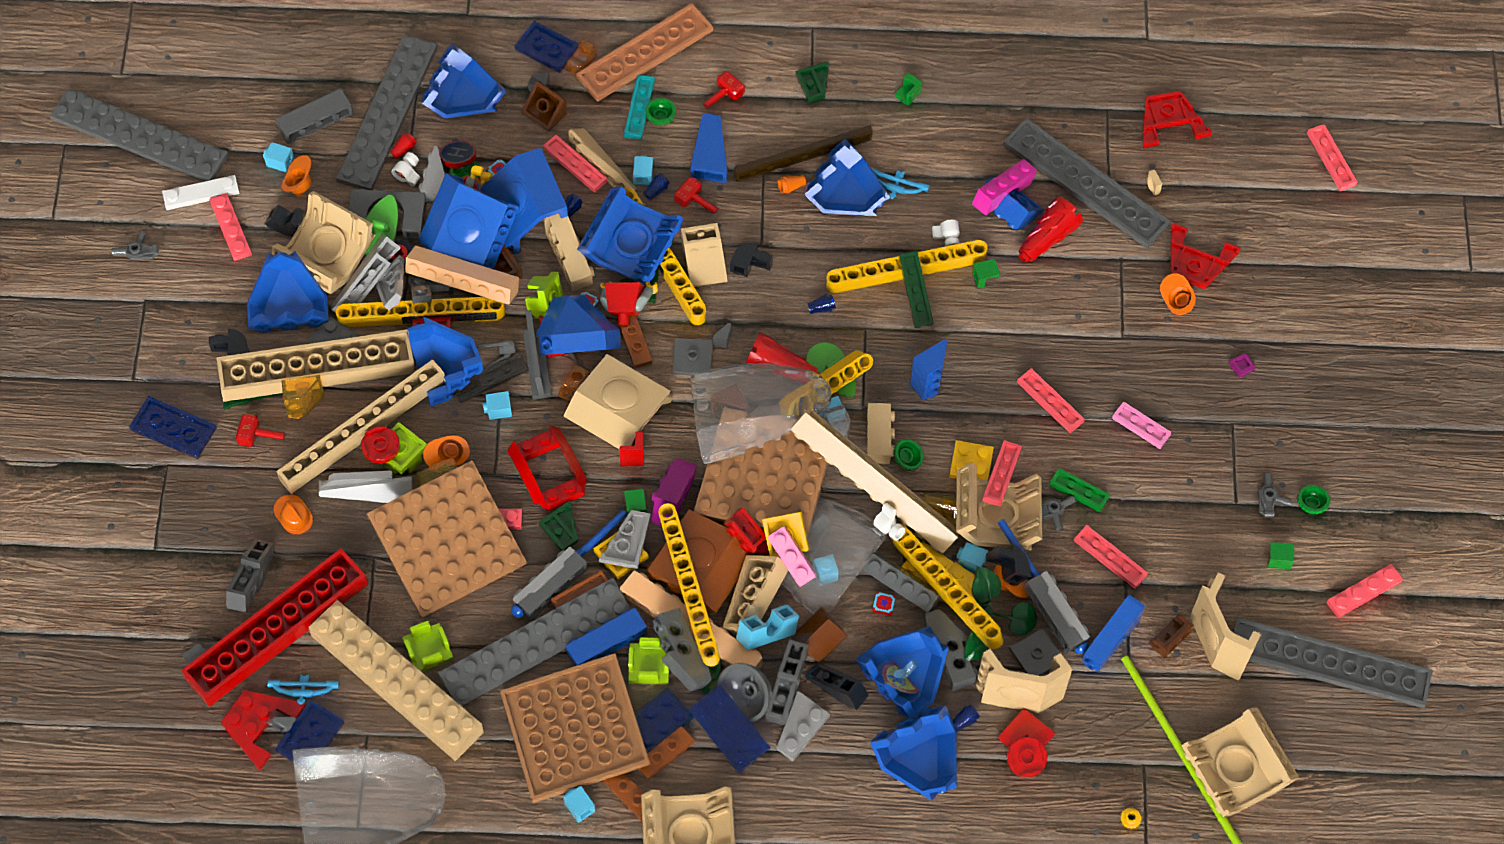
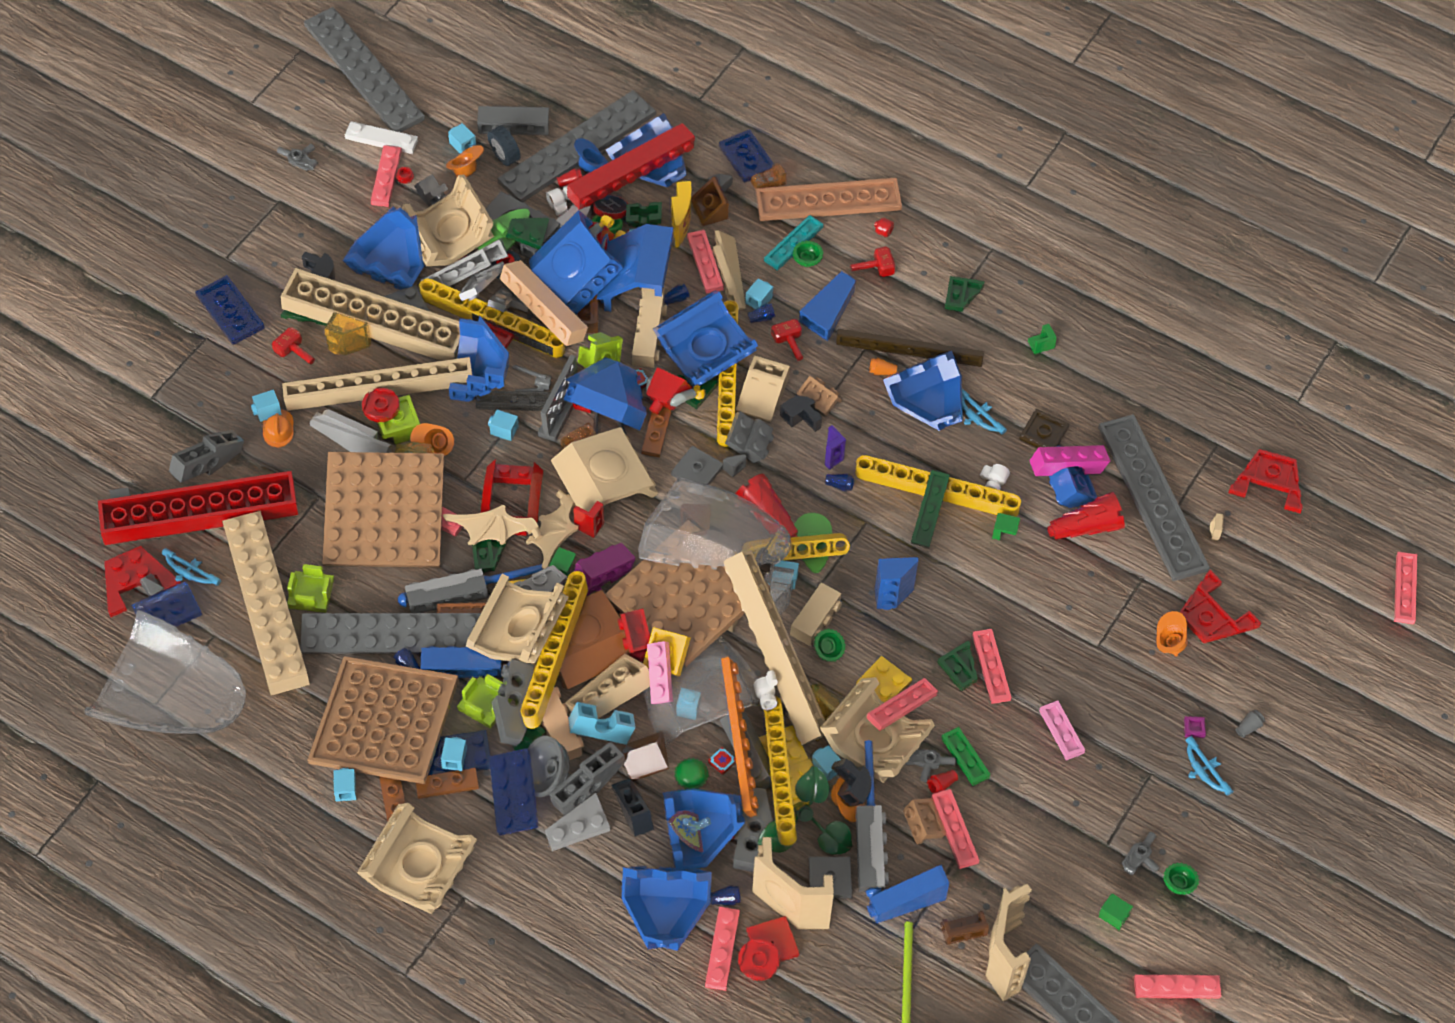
camera: 30 degrees right, 5 degrees down
(248, 218) = (404, 175): none -> red plate
(270, 499) = (265, 405): none -> medium azure brick
(325, 144) = (503, 145): none -> black wheel
(405, 214) = (528, 231): none -> dark green wing
(409, 117) = (589, 155): none -> blue piece
(455, 108) = (630, 166): none -> red brick
(495, 147) = (640, 215): none -> dark green cylinder
(525, 124) = (681, 211): none -> yellow slope
(554, 501) = (494, 525): none -> tan animal
(556, 663) = (405, 658): none -> clear blue cone
(606, 476) = (555, 528): none -> tan animal
(640, 578) = (516, 622): none -> tan panel
(658, 723) = (454, 753): none -> medium azure brick
(710, 54) = (884, 227): none -> red piece
(722, 304) = (749, 437): none -> dark grey plate
(748, 233) = (823, 397): none -> medium nougat bracket
(800, 273) = (834, 448): none -> dark purple panel
(865, 629) = (691, 773): none -> green hat
(900, 580) = (741, 743): none -> orange plate
(961, 171) = (1044, 430): none -> dark brown tile
(989, 764) = (722, 948): none -> coral plate
(1025, 415) = (959, 666): none -> dark green wing
(1074, 522) = (942, 781): none -> red cone
(1081, 563) = (924, 820): none -> medium nougat bracket
(1274, 391) = (1192, 745): none -> dark azure piece
(1285, 336) = (1252, 722): none -> dark grey cone

